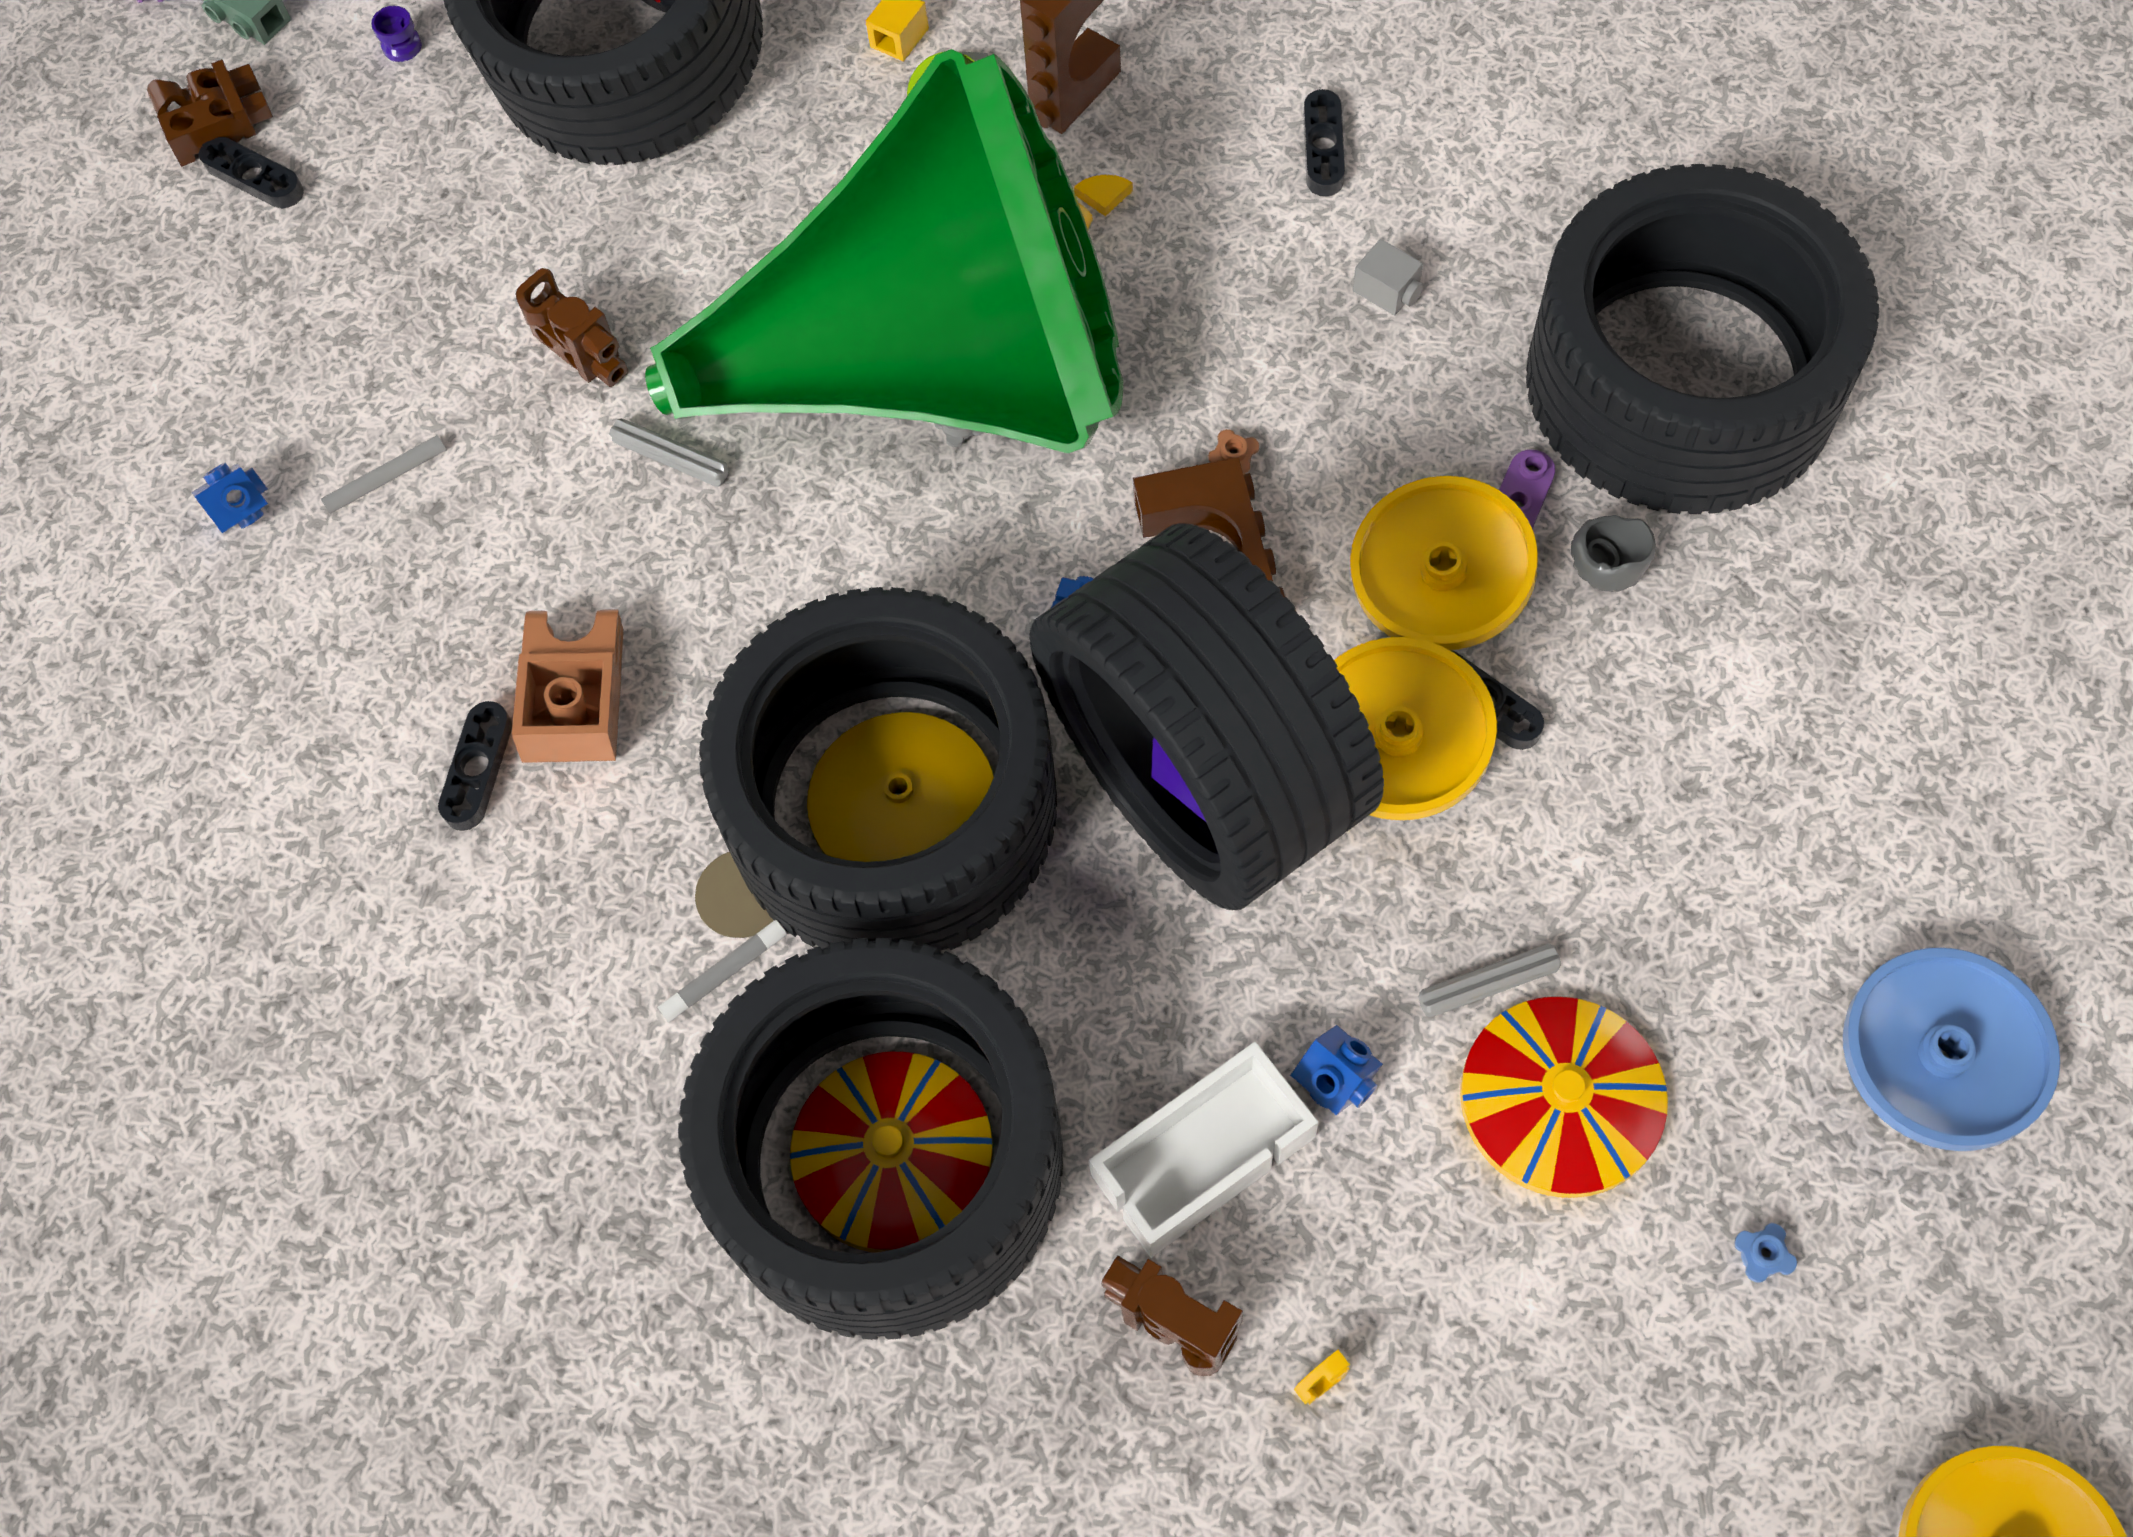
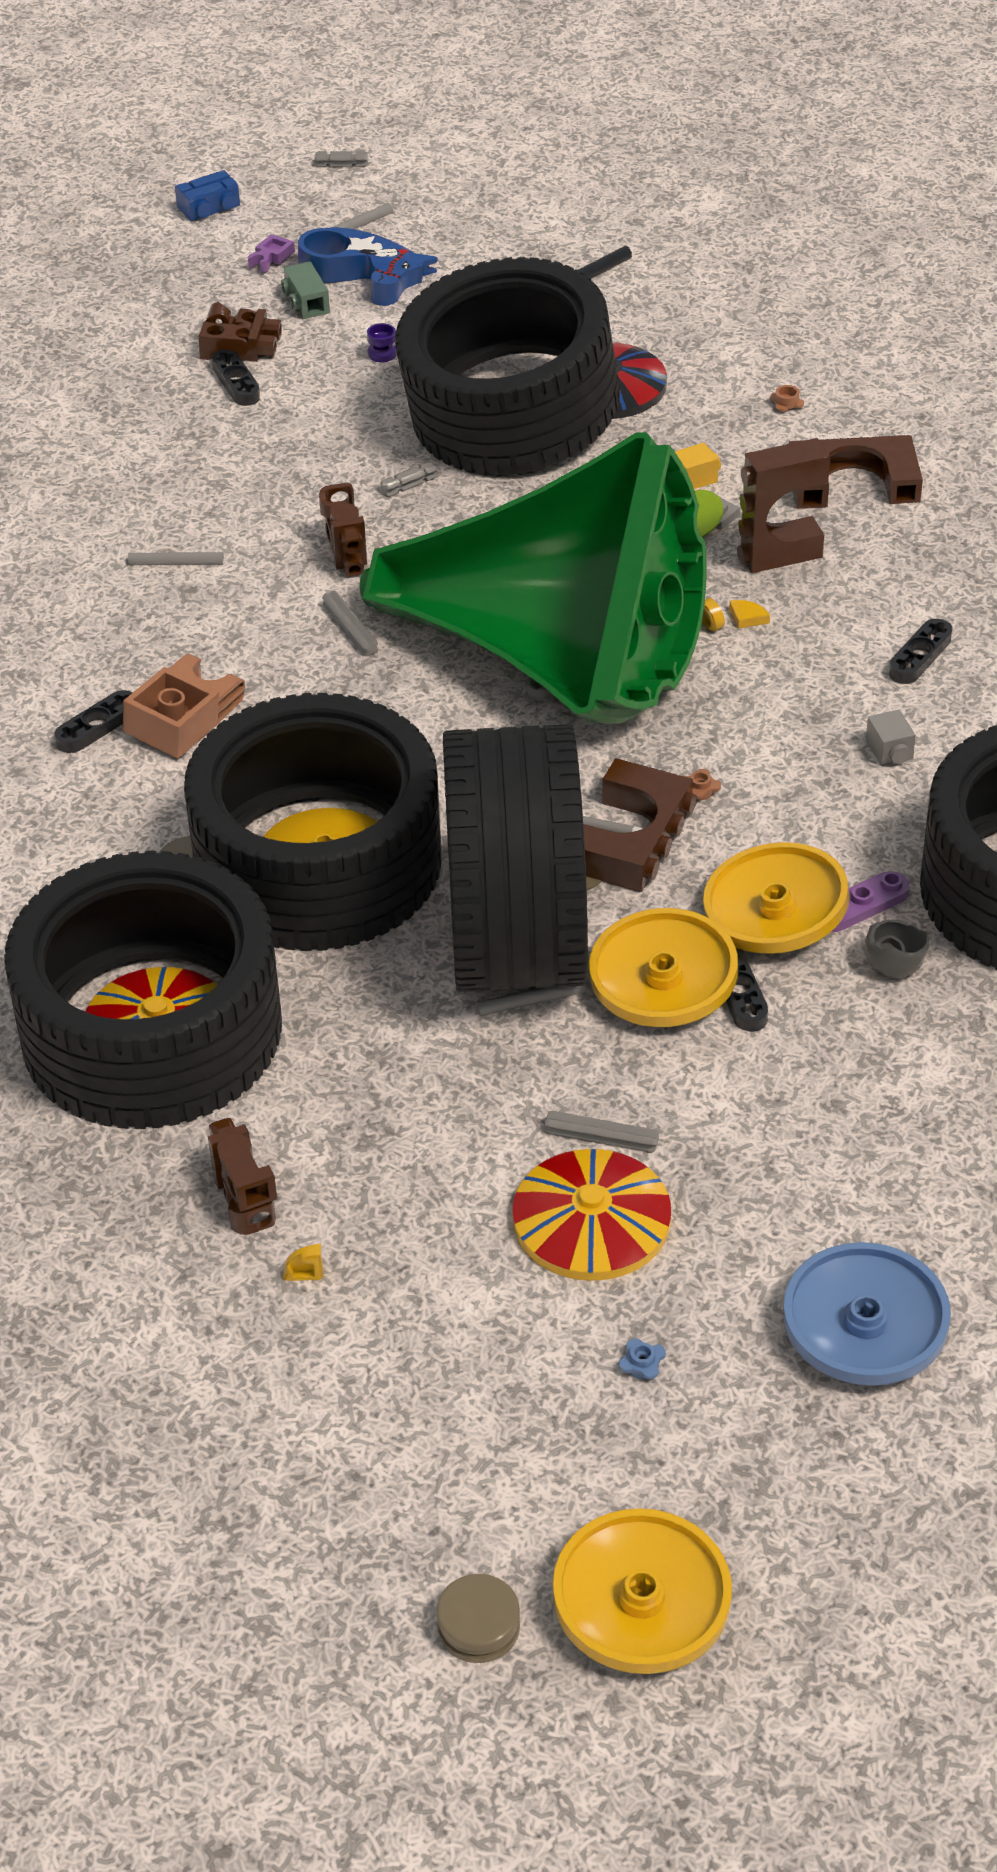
camera: 30 degrees right, 20 degrees down
(229, 513) = (69, 518): blue brick -> none
(577, 211) = (408, 479): none -> light grey axle
(1203, 1148) = (335, 1109): white piece -> none
(1338, 1071) = (456, 1116): blue brick -> none

